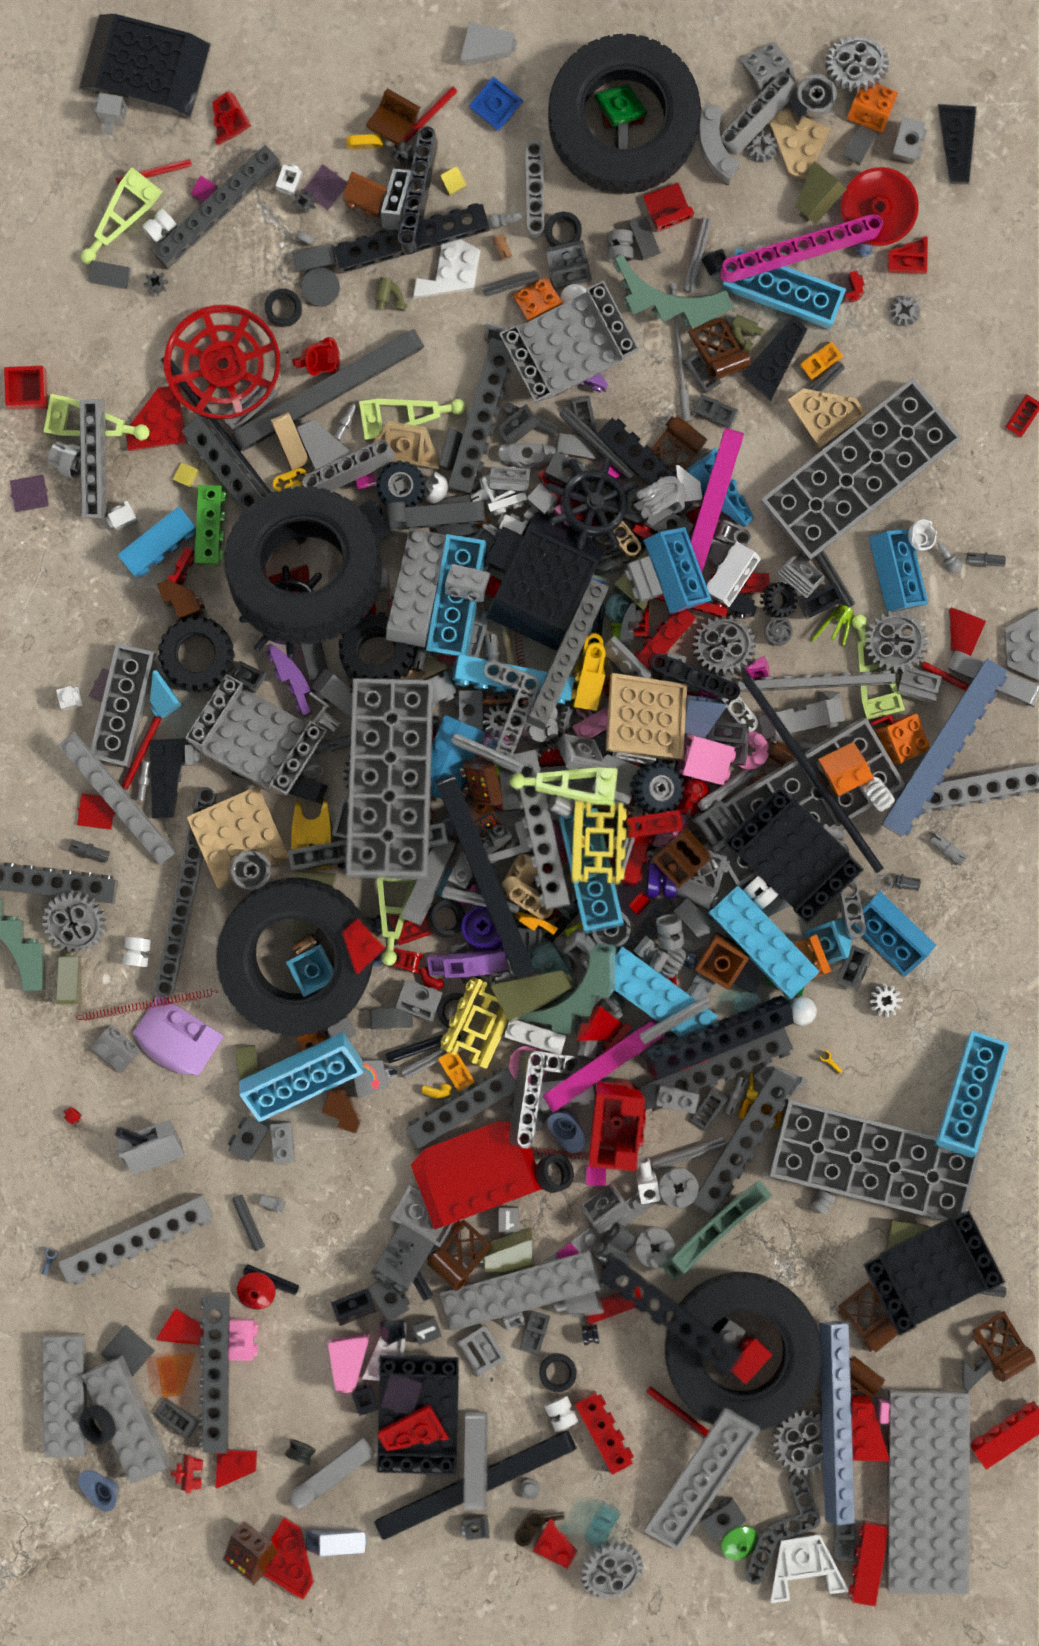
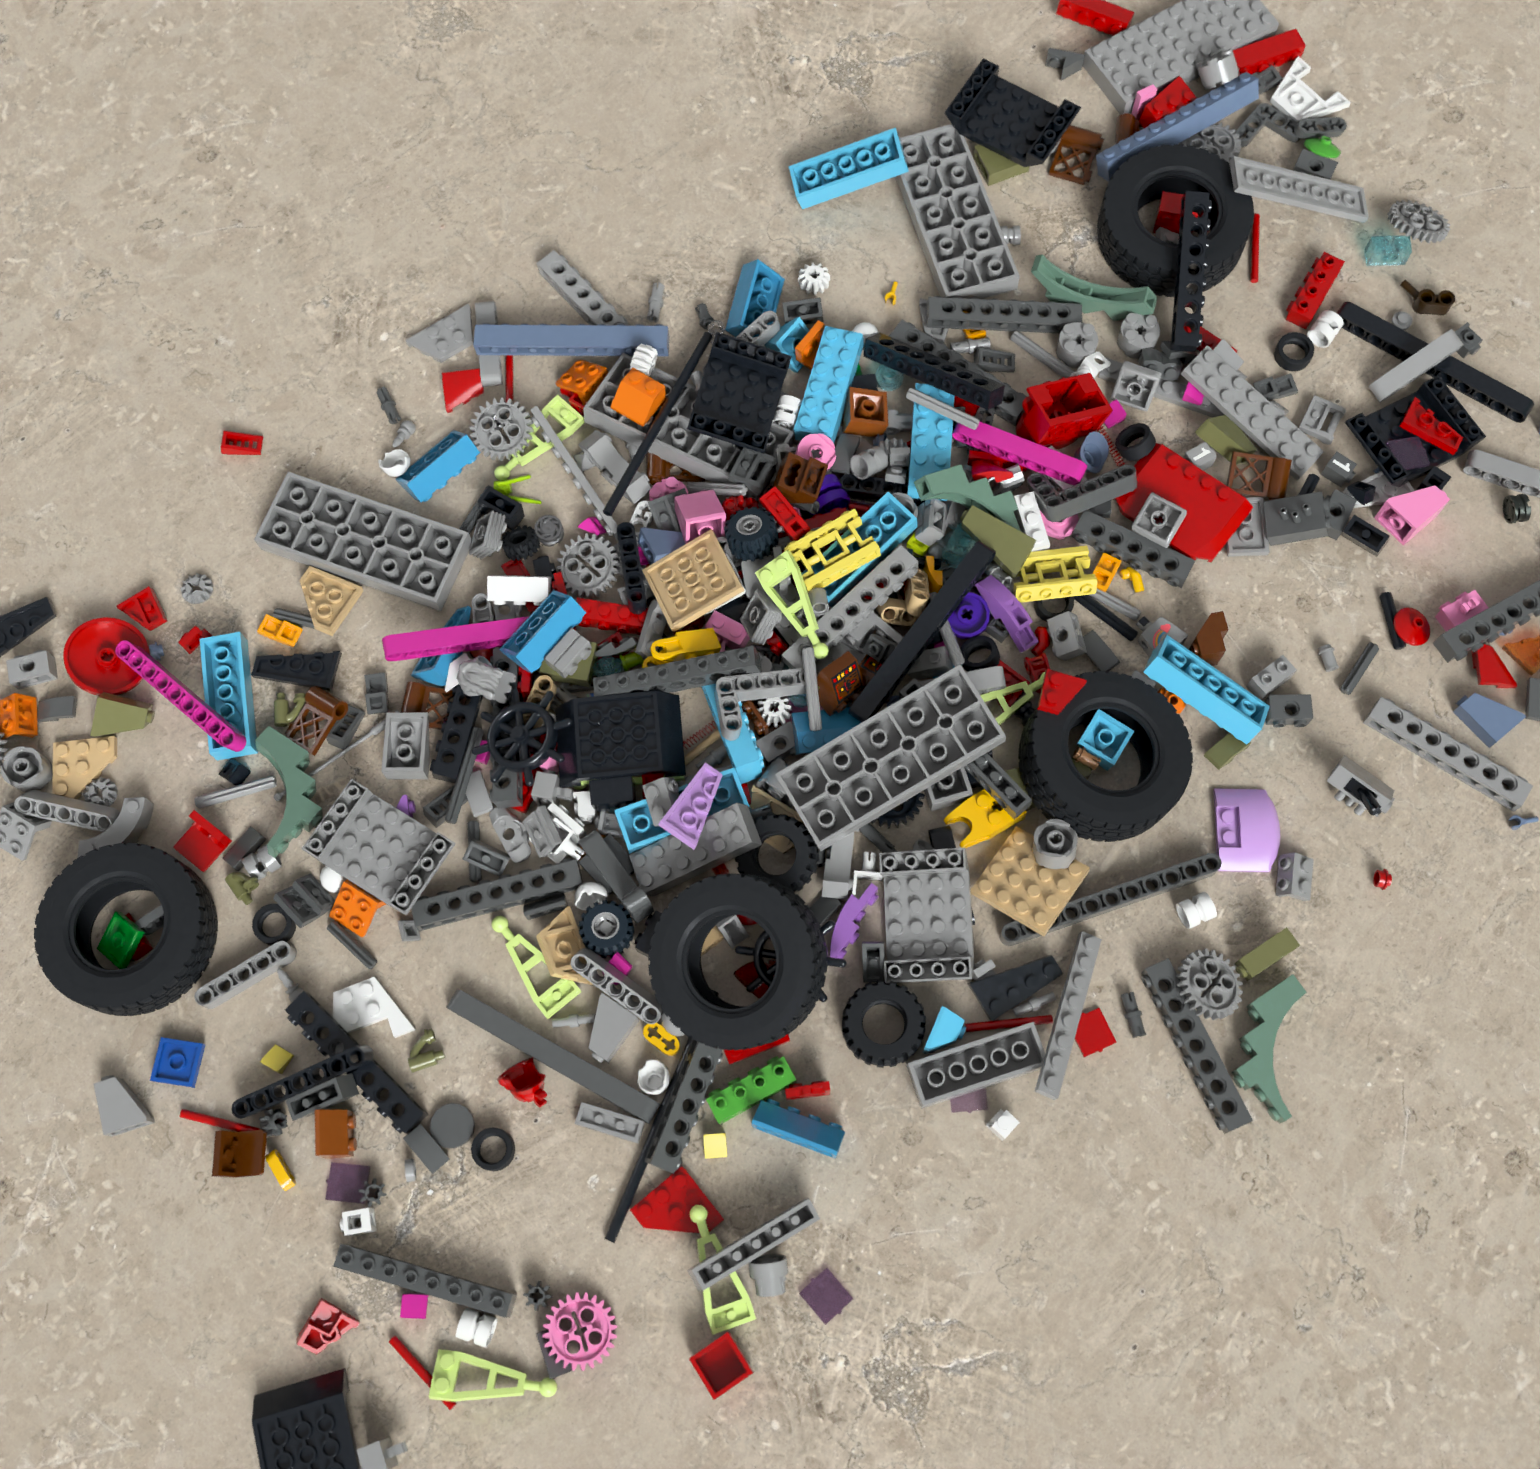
camera: 115 degrees left, 15 degrees down
(114, 282) = (600, 1323): none -> bright pink gear
(121, 516) = (794, 1183): white brick -> none
(143, 1293) = (1487, 717): none -> sand blue slope
(147, 1005) = (1236, 871): red piece -> none
(183, 599) = (840, 1064): reddish brown piece -> none
(220, 351) = (567, 1175): red dish -> none
(263, 457) = (653, 1077): none -> white hair
(290, 441) = (623, 1059): tan beam -> none
(442, 595) = (690, 810): none -> lavender wing
(472, 1127) = (1154, 508): none -> light grey brick
(501, 246) = (320, 973): medium nougat pin -> none
(555, 1546) = (1431, 275): red wing -> none
(590, 1334) = (1245, 344): black wheel -> none
(610, 221) = (242, 886): none -> olive plant
(650, 410) = (406, 746): none -> light grey slope
(677, 1099) = (1006, 372): light grey brick -> none
(713, 894) = (820, 442): none -> bright pink plate
(750, 1094) = (960, 336): yellow hand -> none
(798, 110) = (47, 775): black slope -> none
(871, 1498) = (1218, 69): none -> light grey brick
(919, 685) = (529, 392): light grey plate -> none
(1008, 1362) = (1034, 39): reddish brown piece -> none

